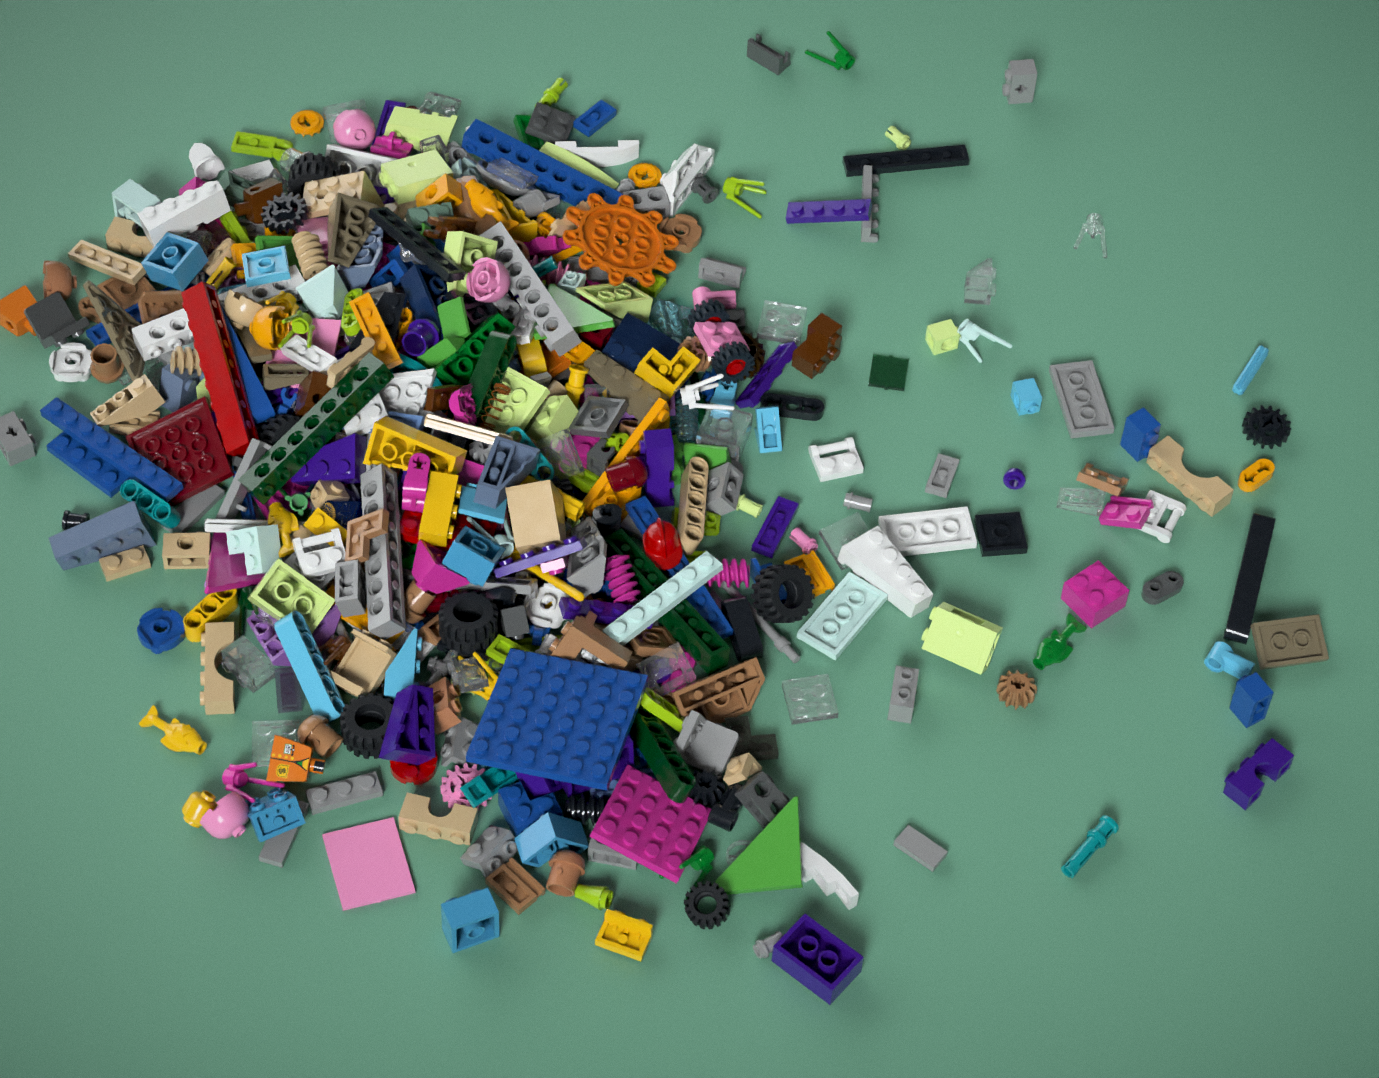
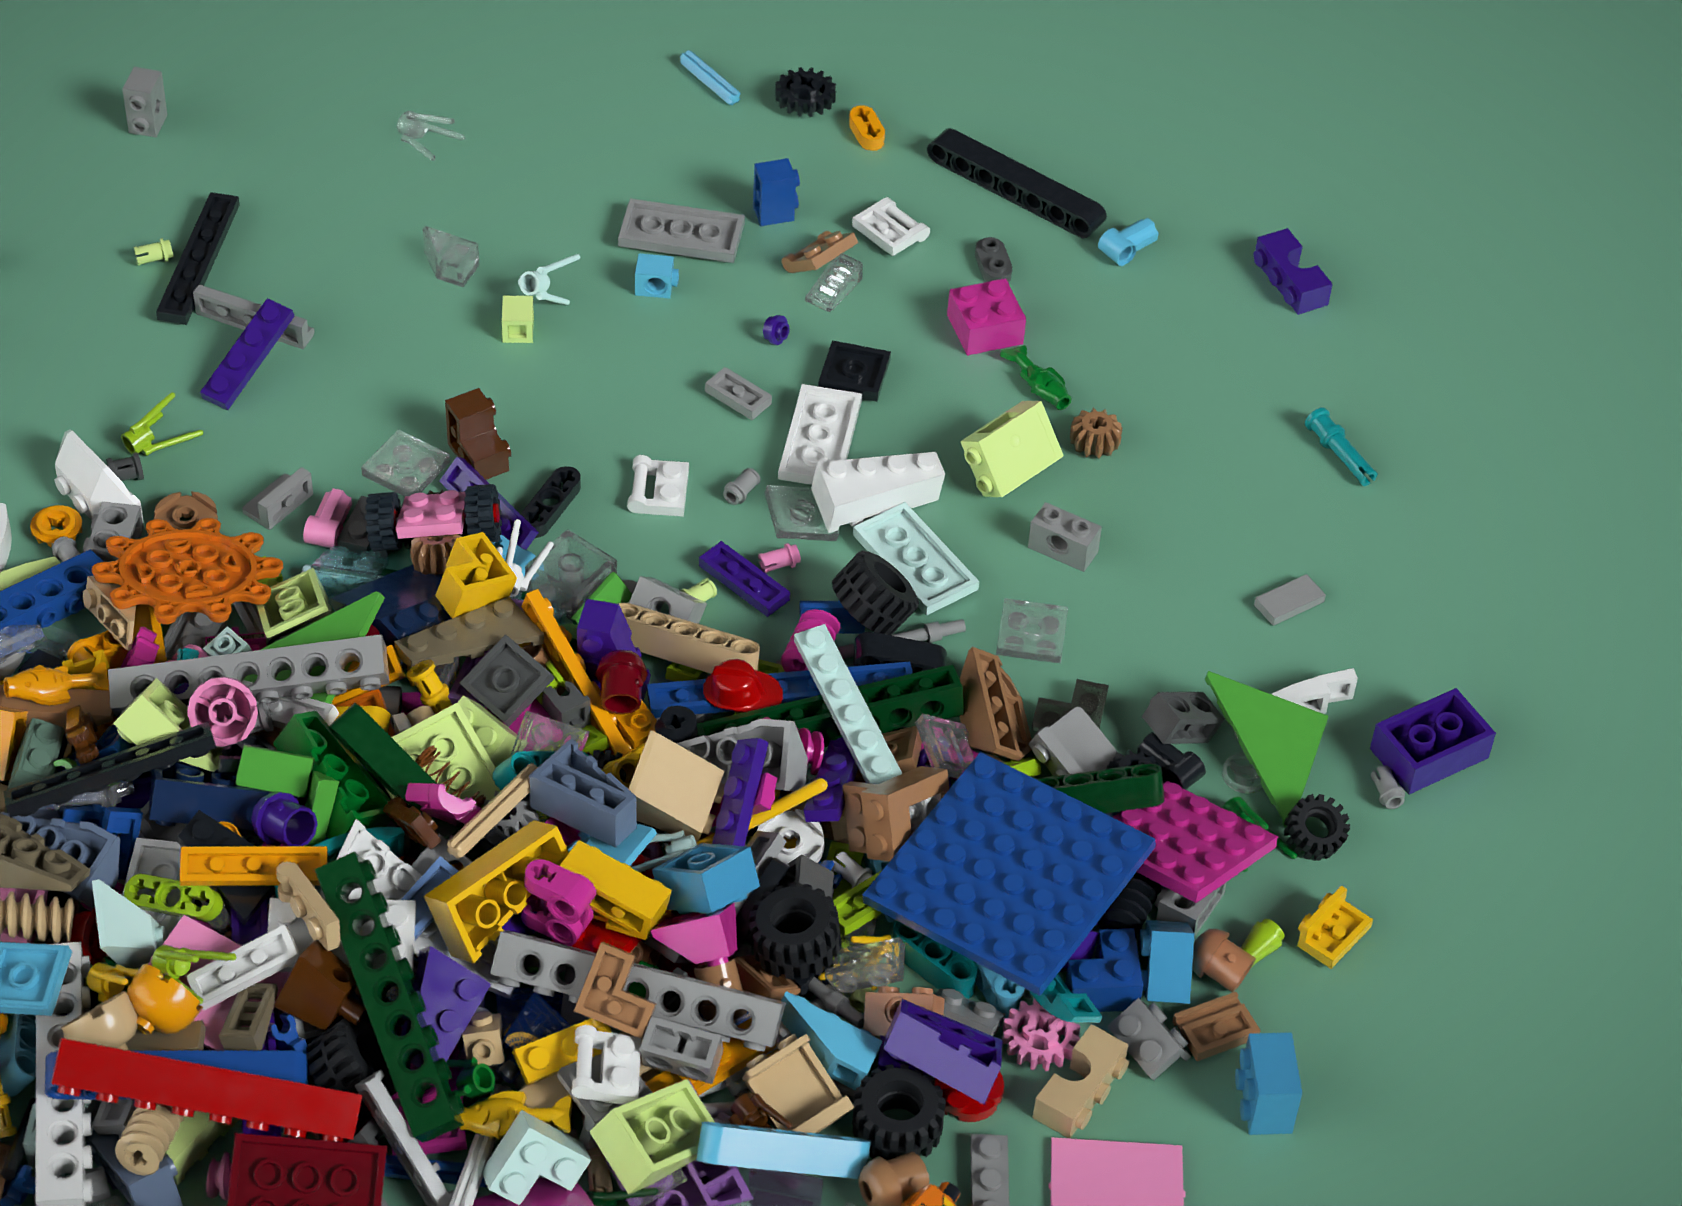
camera: 70 degrees left, 5 degrees down
(535, 202) = (52, 648): light grey piece -> none
(740, 768) = (1125, 726): tan bracket -> none
(768, 429) = (585, 525): medium azure slope -> none
(816, 570) = (824, 565): light orange plate -> none
(888, 372) = (540, 393): clear green piece -> none
(1126, 512) = (879, 247): dark pink plate -> none
(1208, 493) = (880, 174): tan arch -> none
(1251, 699) = (1198, 235): blue brick -> none
(1289, 642) = (1125, 180): dark tan plate -> none

